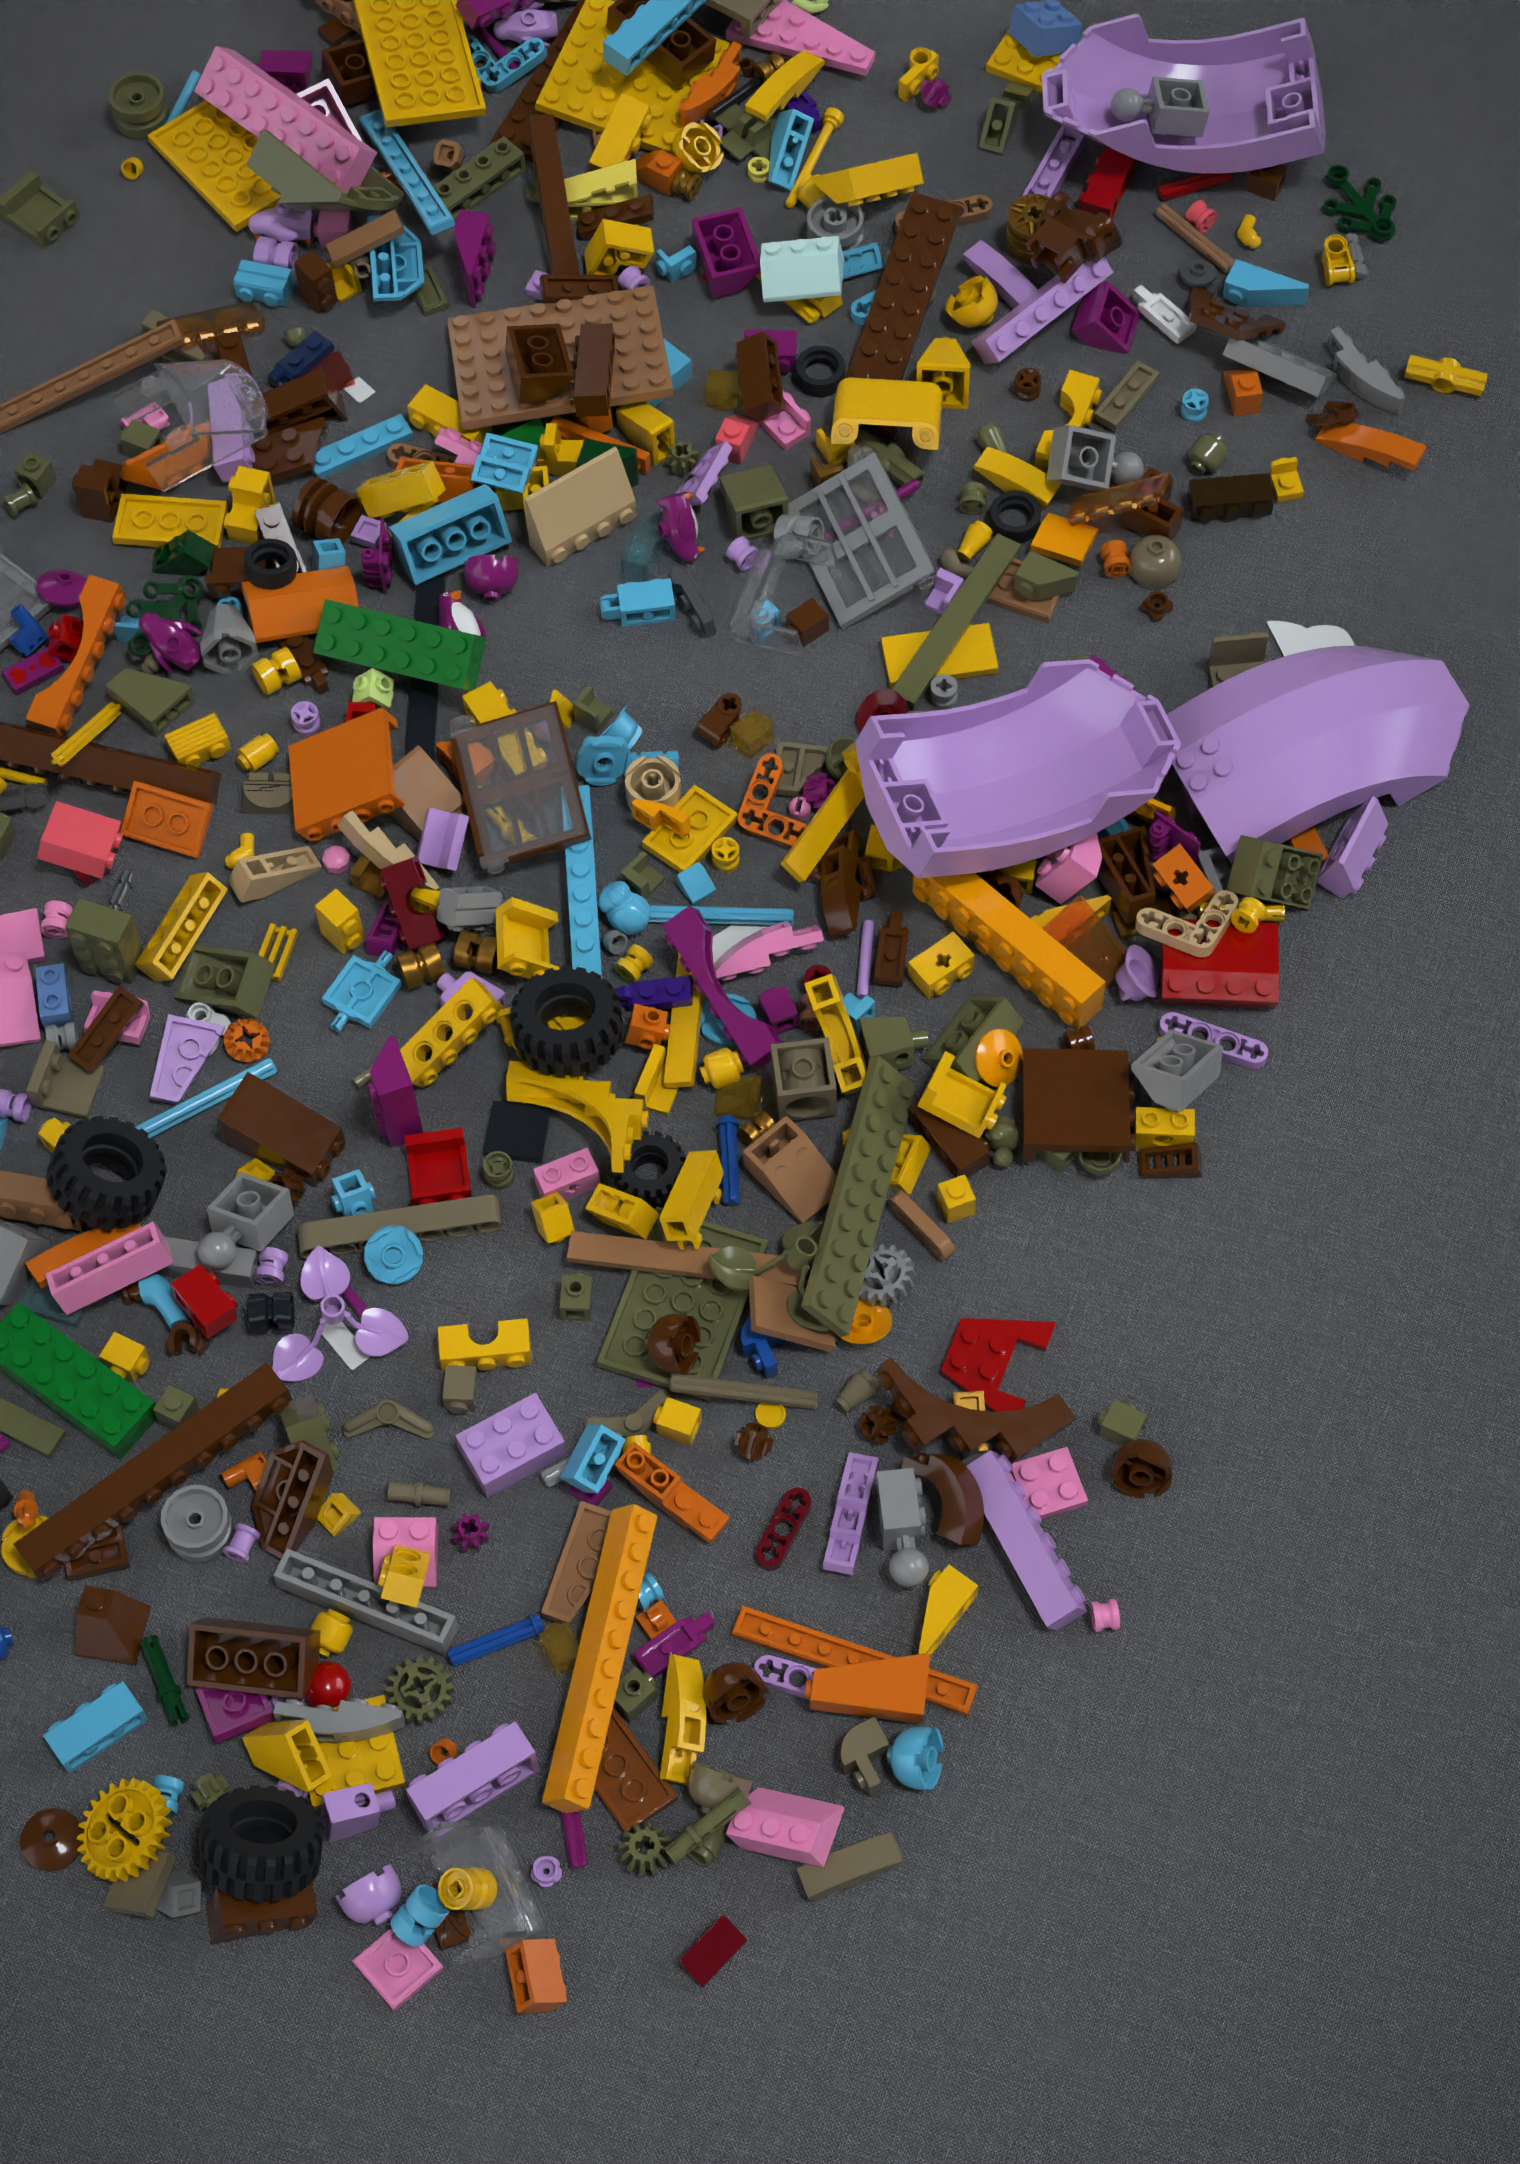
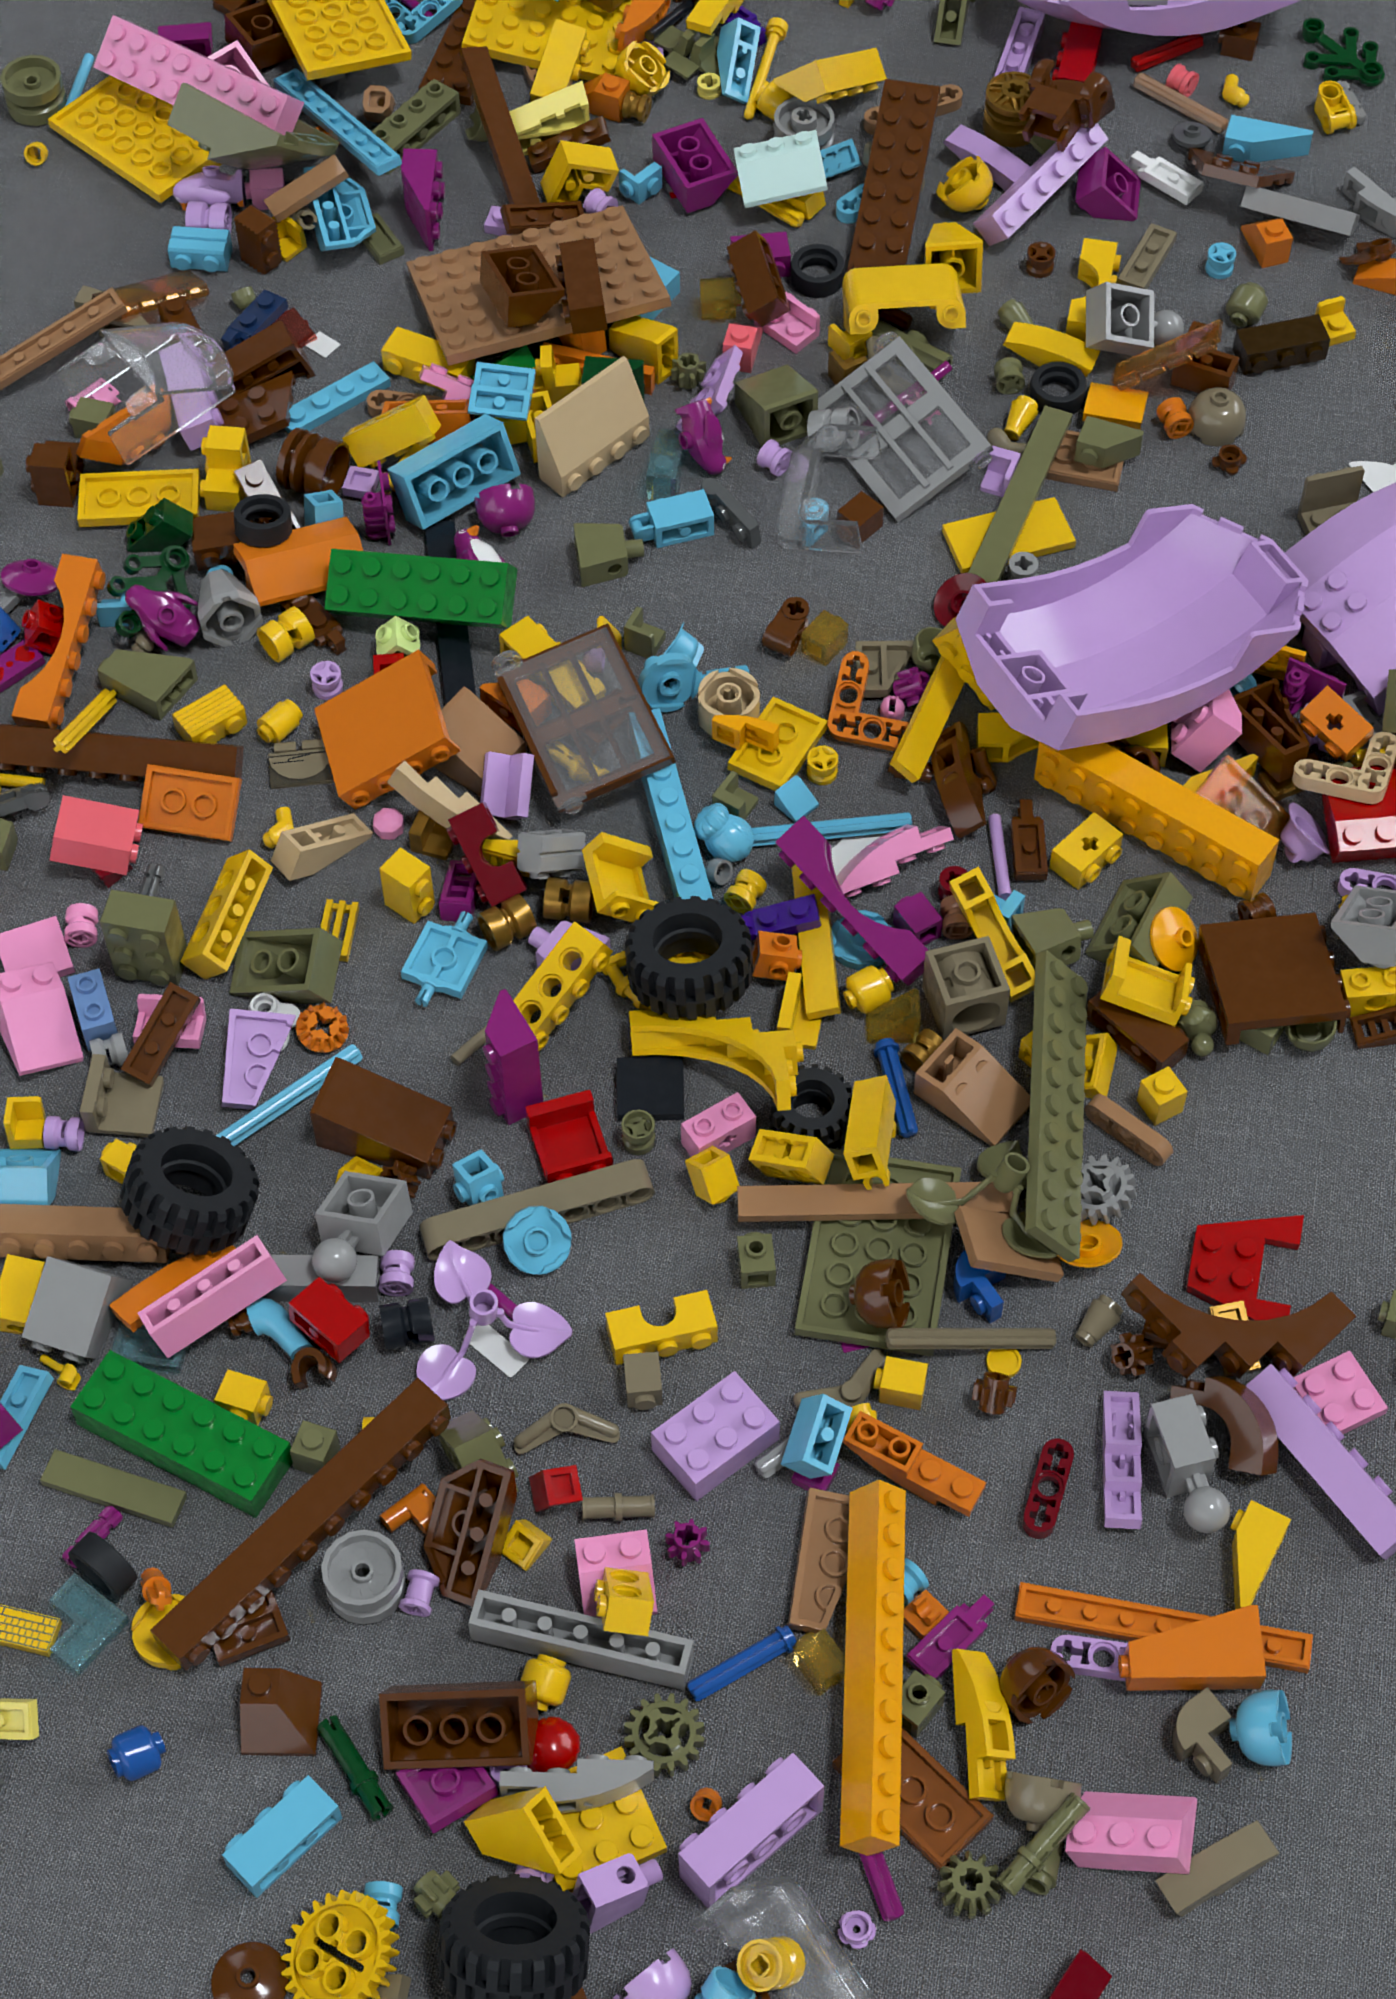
camera: 10 degrees left, 5 degrees down
(369, 1470) = (555, 1487): none -> red panel
(571, 626) = (603, 552): none -> olive torso

